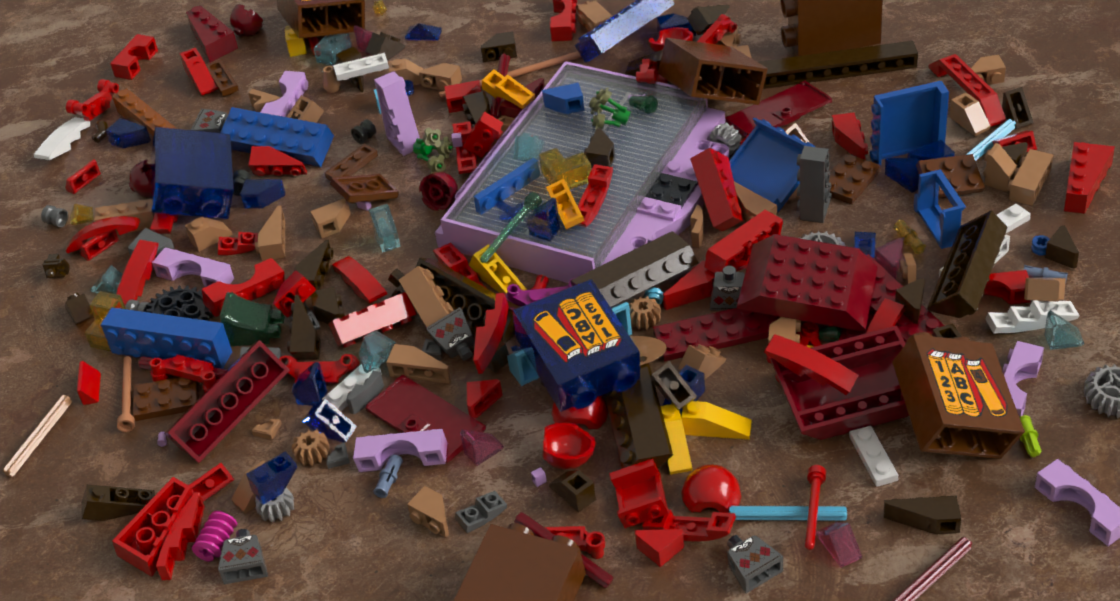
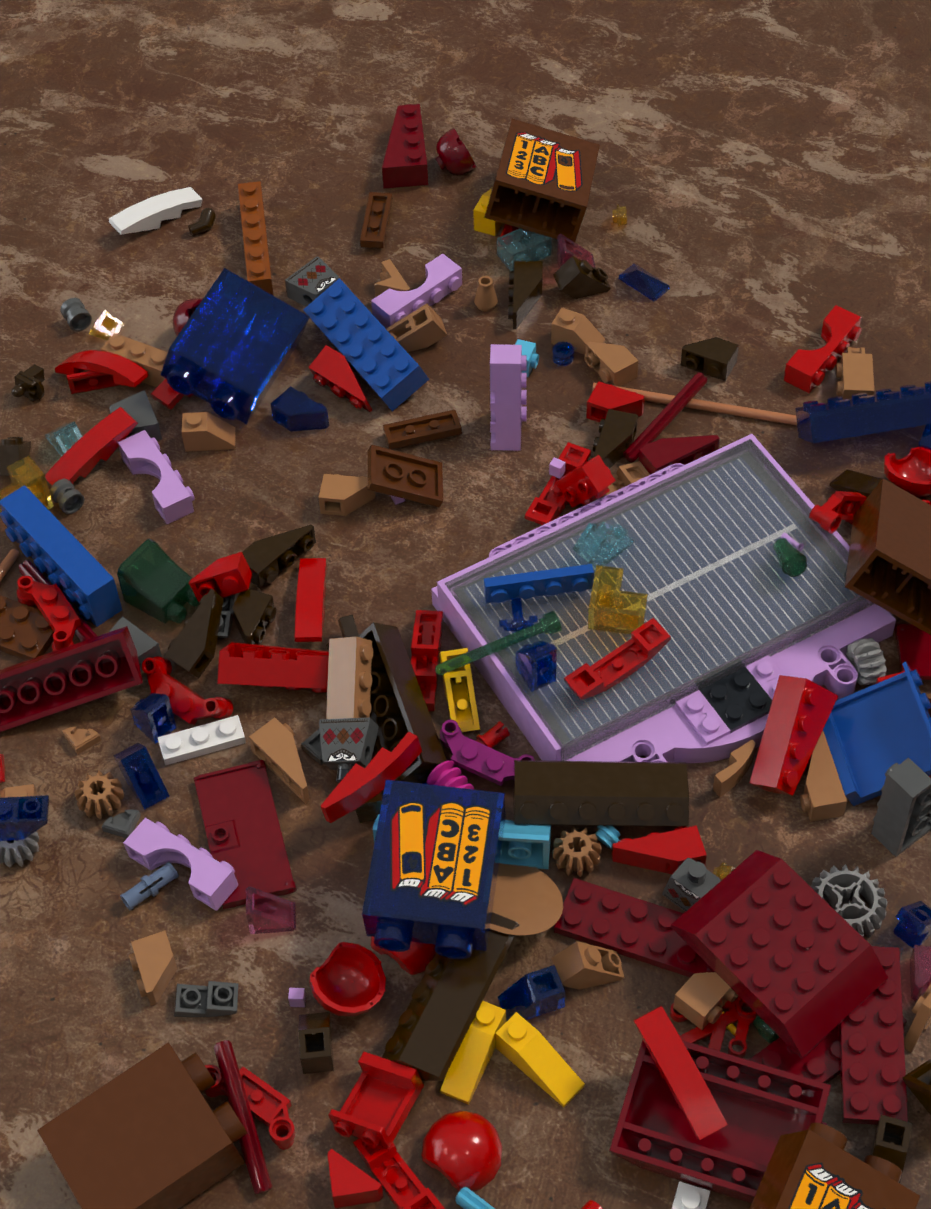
camera: 30 degrees right, 10 degrees up
(82, 177) = (140, 277): red slope -> none
(96, 104) = (219, 183): red plate -> none
(126, 62) = (318, 127): red arch -> none
(127, 134) = (222, 243): clear blue slope -> none
(180, 303) = (106, 522): black gear -> none
(198, 71) = (354, 198): red slope -> none
(233, 245) = (227, 468): red slope -> none
(238, 181) = (290, 377): pearl dark grey wheel -> none
(267, 278) = (216, 537): red arch -> none
(272, 237) = (267, 481): medium nougat slope -> none
(361, 67) = (523, 299): white plate -> none
(362, 132) = (466, 391): pearl dark grey wheel -> none
(363, 394) = (196, 762): dark grey slope -> none
(375, 350) = (250, 712): clear light blue slope -> none
(384, 228) = (383, 548): clear light blue slope -> none
(430, 141) = (519, 455): olive plant -> none
(438, 190) = (483, 529): dark red cylinder -> none
(482, 395) = (315, 847): red slope -> none
(507, 88) = (660, 433): light orange slope -> none
(564, 98) = (702, 494): blue slope -> none
(566, 204) = (577, 653): light orange slope -> none
(598, 103) = (745, 559): plant -> none
(600, 149) = (680, 600): dark brown slope -> none
(672, 386) = (509, 990): dark brown slope -> none
(736, 247) = (782, 833): red wedge -> none
(886, 315) = (835, 1060): red slope -> none
(911, 297) = (888, 1054): dark brown slope -> none

